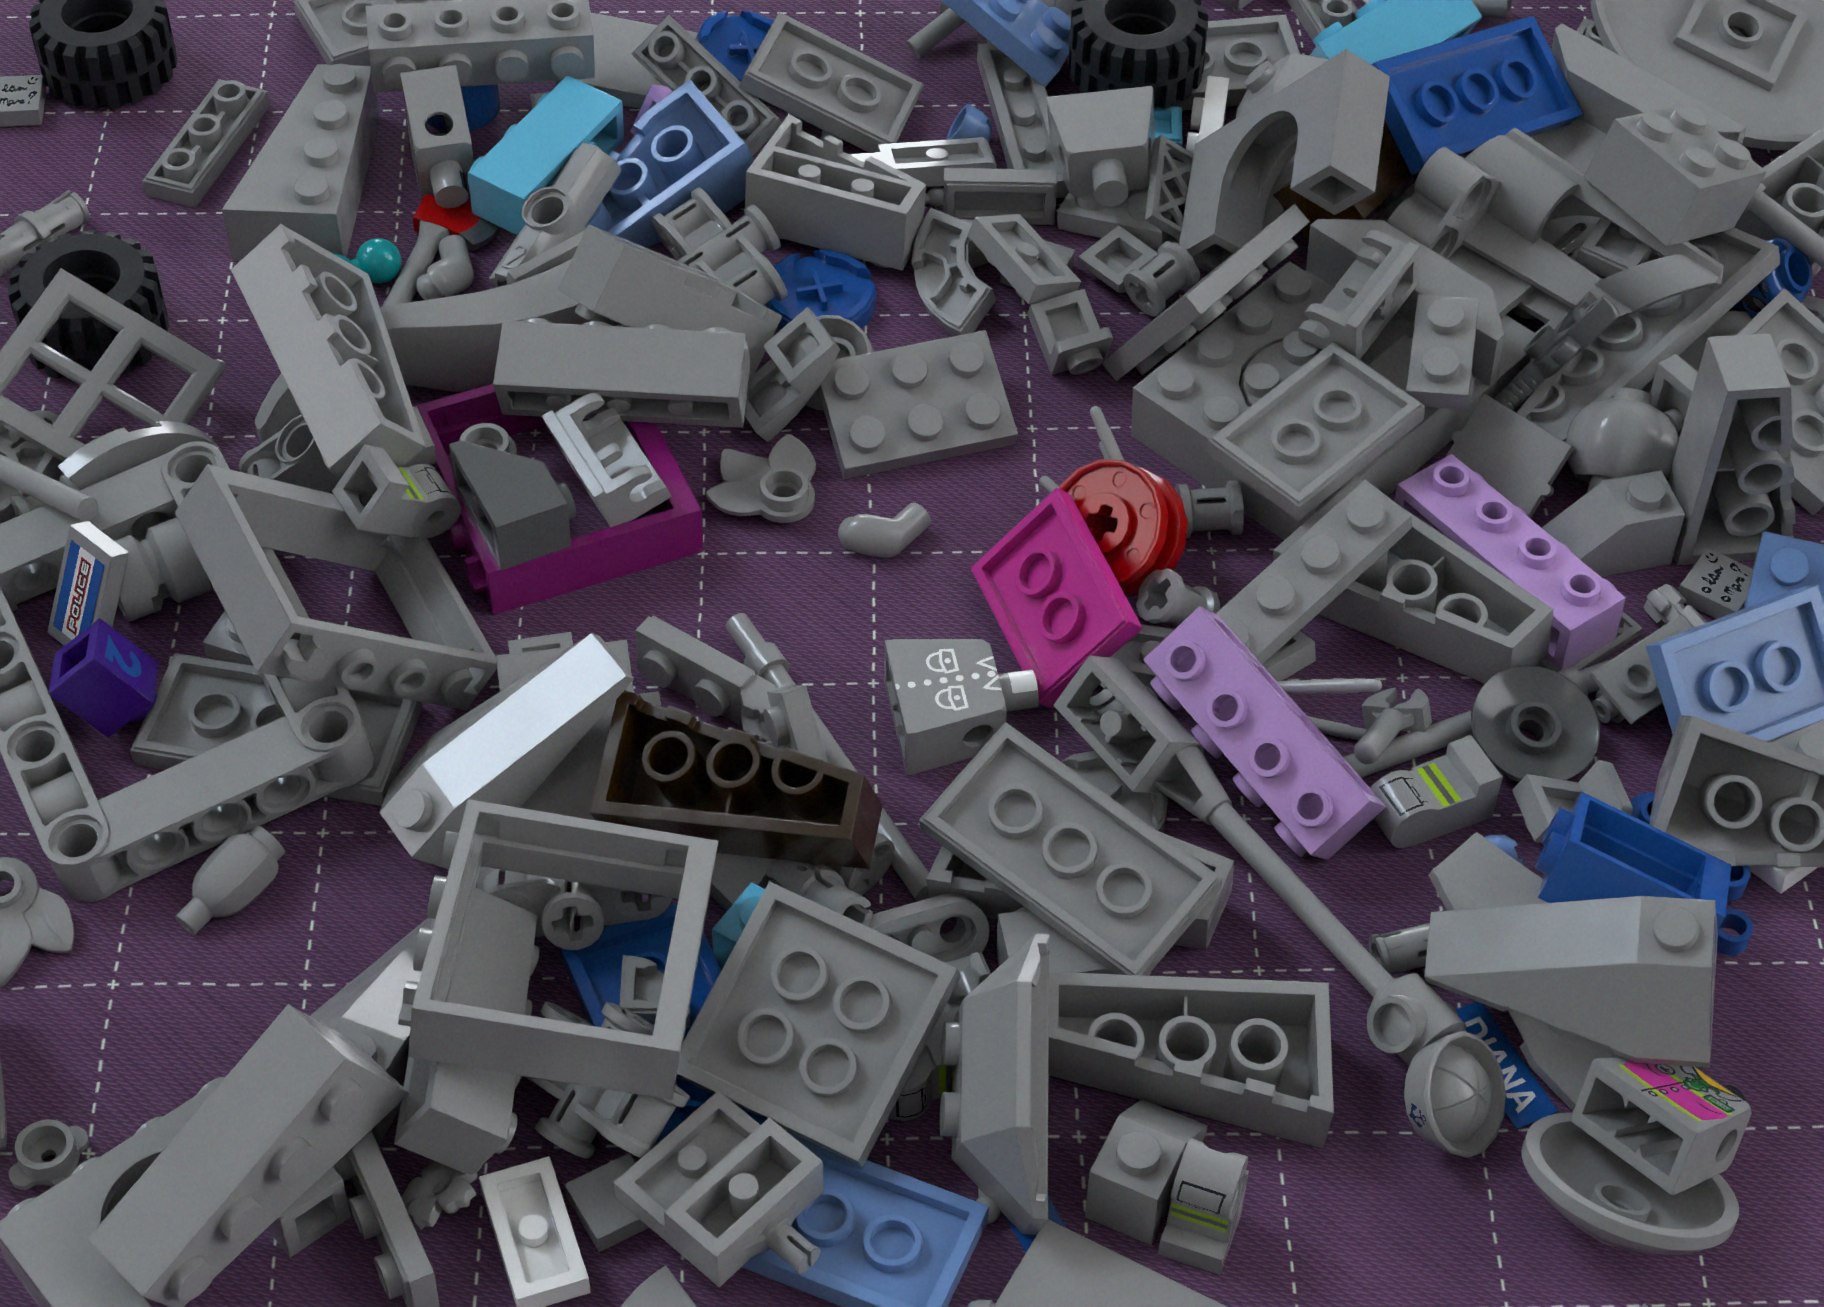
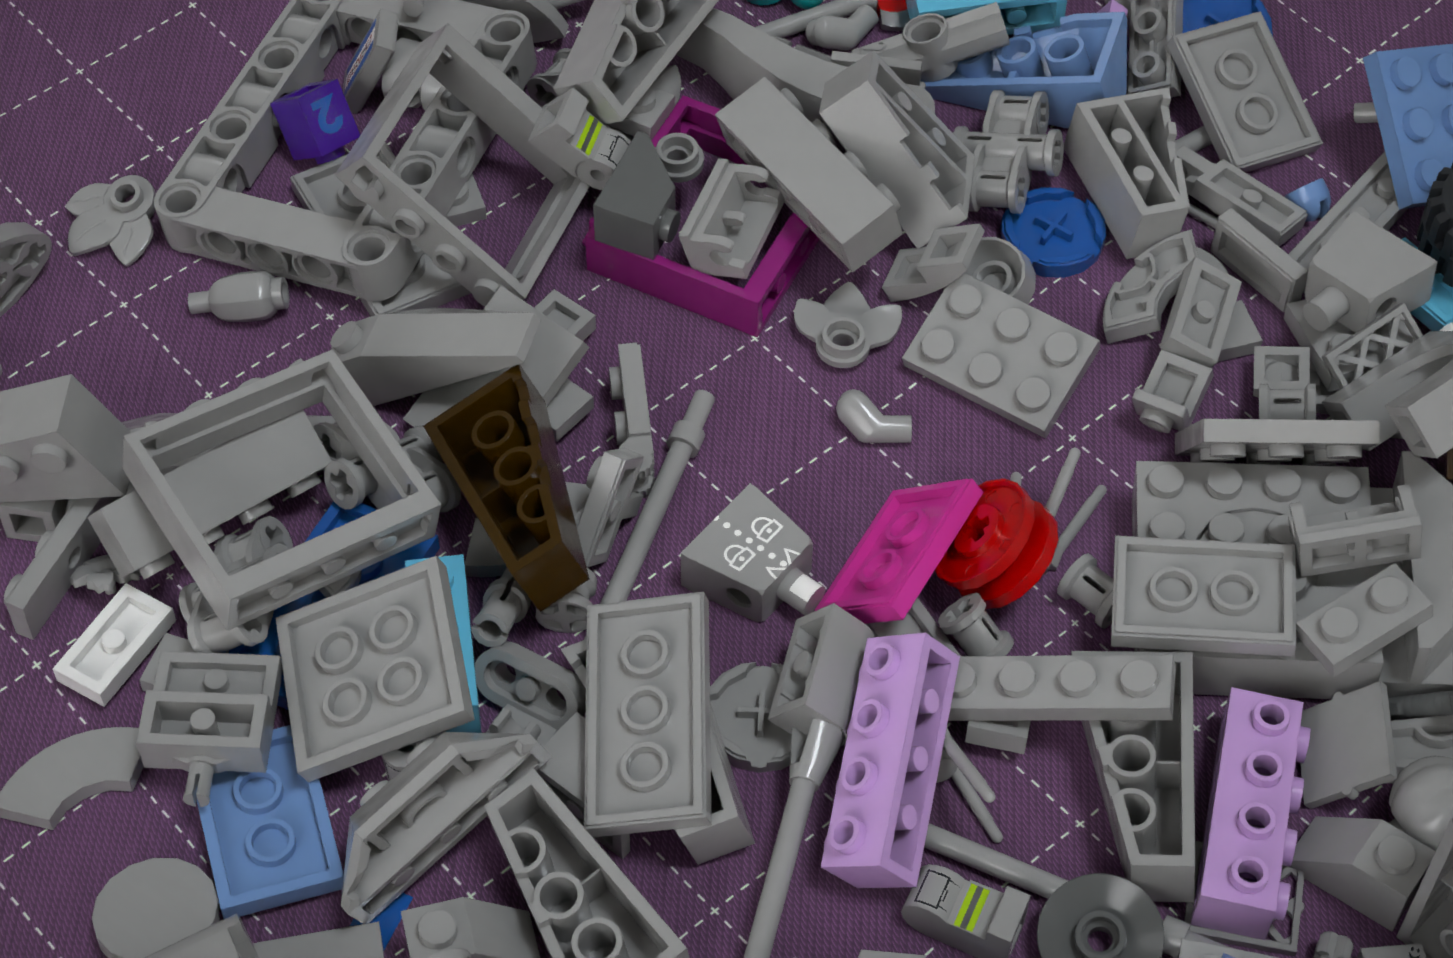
camera: 50 degrees right, 5 degrees up
(1386, 718) = (1022, 834): light grey bar -> none

